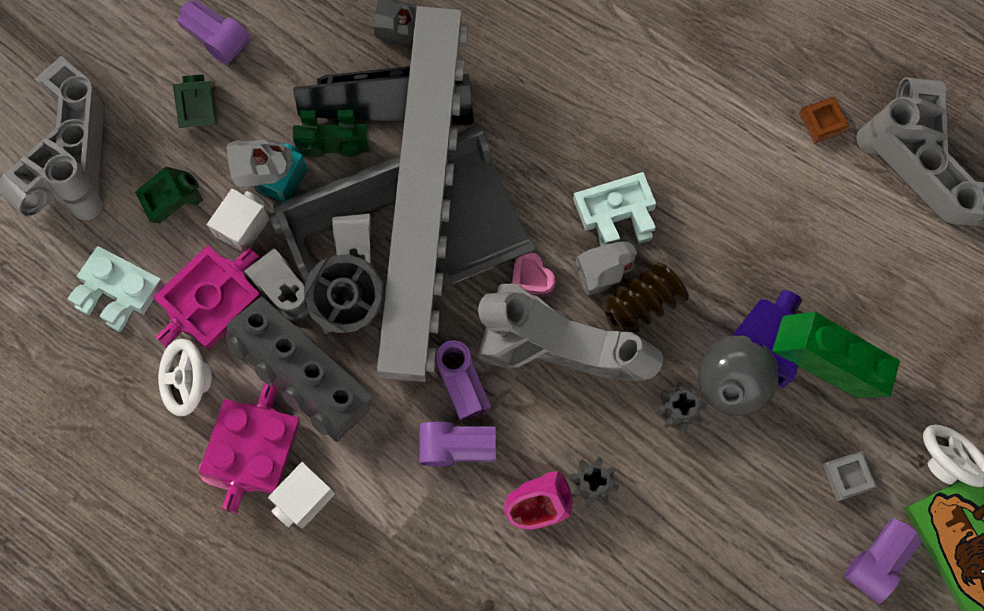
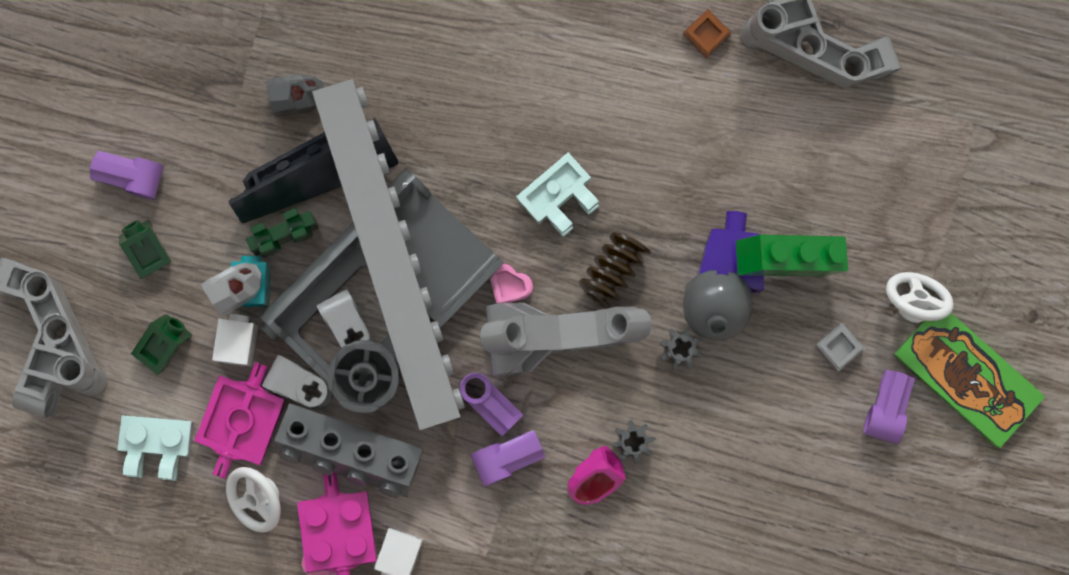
camera: 25 degrees left, 10 degrees up
(604, 266) = (569, 252): light grey rock -> none

